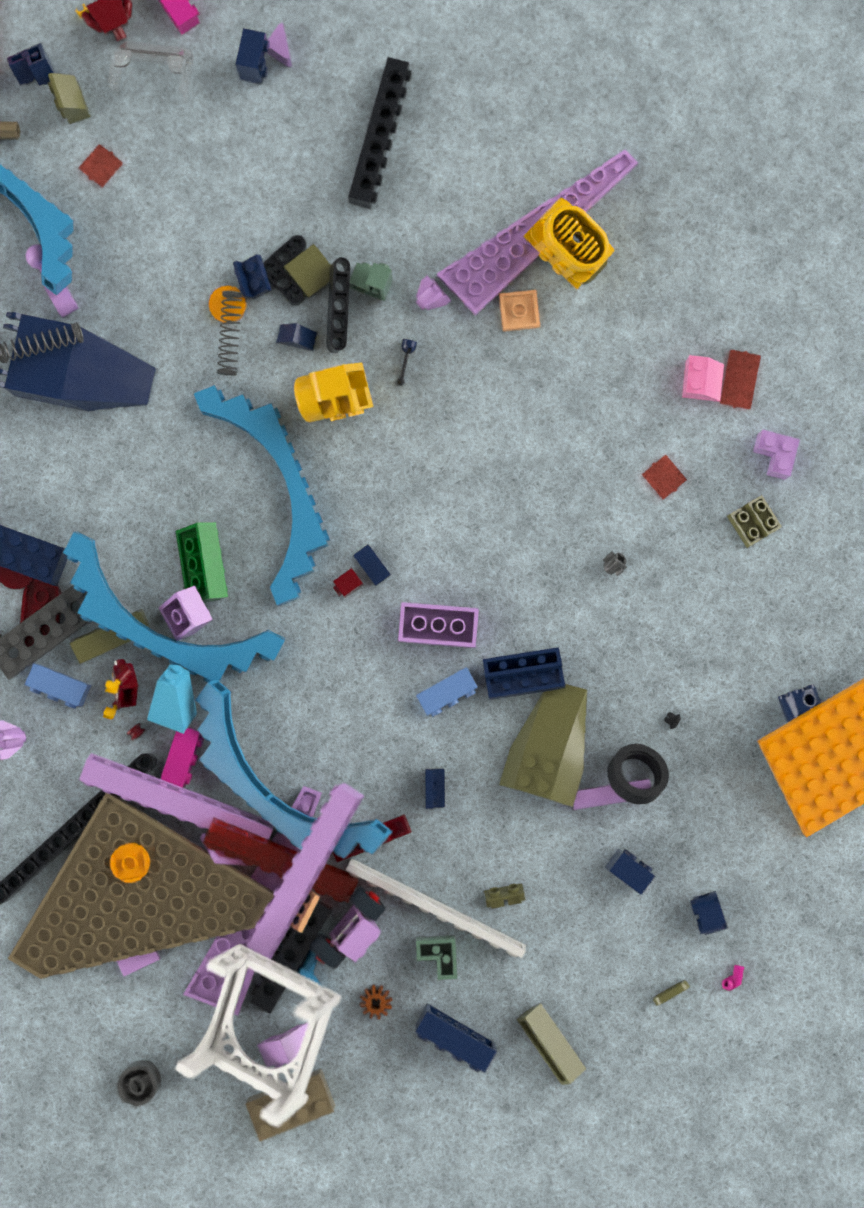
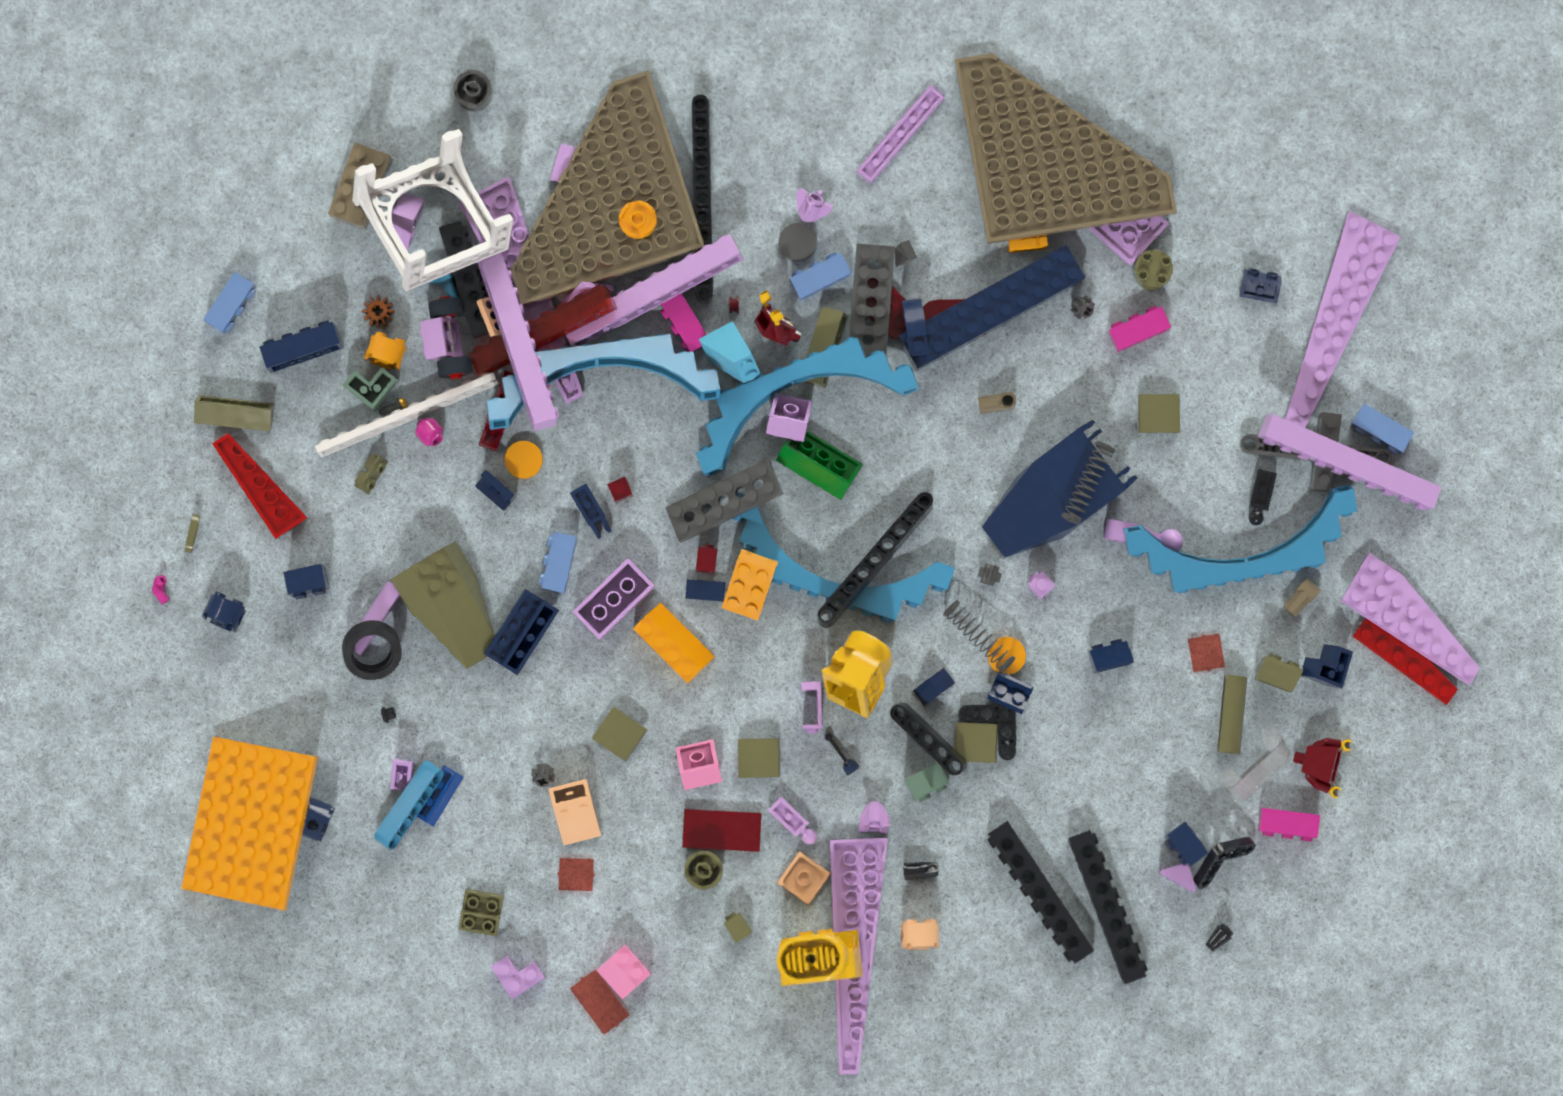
camera: 130 degrees right, 0 degrees up
(30, 575) = (915, 327): none -> dark blue arch
(42, 471) = (994, 403): none -> dark tan piece
(46, 726) = (797, 242): none -> dark grey tile
(130, 109) = (1232, 714): none -> olive brick
(152, 322) = (1040, 584): none -> lavender brick
(161, 225) = (1111, 656): none -> dark blue slope
(177, 365) = (989, 574): none -> dark grey gear
(228, 453) = (877, 551): none -> black beam
(236, 23) = (1217, 855): none -> black beam
(289, 594) = (712, 495): none -> dark grey plate
(338, 532) = (749, 584): none -> light orange piece
(351, 693) = (620, 490): none -> dark red brick
(372, 415) = (813, 686): none -> lavender panel
(375, 19) = (1127, 974): none -> black brick
(386, 704) = (589, 508): none -> dark blue hinge
(392, 788) = (523, 459): none -> light orange tile
(402, 968) = (385, 351): none -> light orange brick
(431, 553) = (674, 643): none -> light orange slope
(432, 921) = (400, 403): none -> dark grey piece
(434, 878) = (429, 432): none -> dark pink head
(440, 232) = (920, 870): none -> black hinge
(461, 417) = (758, 758): none -> olive slope
(469, 1125) = (230, 303): none -> medium blue brick
(485, 353) = (792, 820): none -> lavender plate
(487, 188) = (920, 935): none -> light nougat brick
(504, 456) = (698, 764): none -> bright pink slope
(534, 534) = (619, 734): none -> olive slope
(537, 399) = (721, 830): none -> dark red tile
(579, 384) = (703, 870): none -> olive brick
(594, 952) = (268, 499): none -> red wing
(598, 325) = (737, 926): none -> olive brick
(620, 517) = (575, 812): none -> light nougat slope
(698, 628) = (440, 797): none -> blue slope
(707, 669) = (401, 774): none -> lavender slope
(725, 643) = (409, 805): none -> dark azure beam

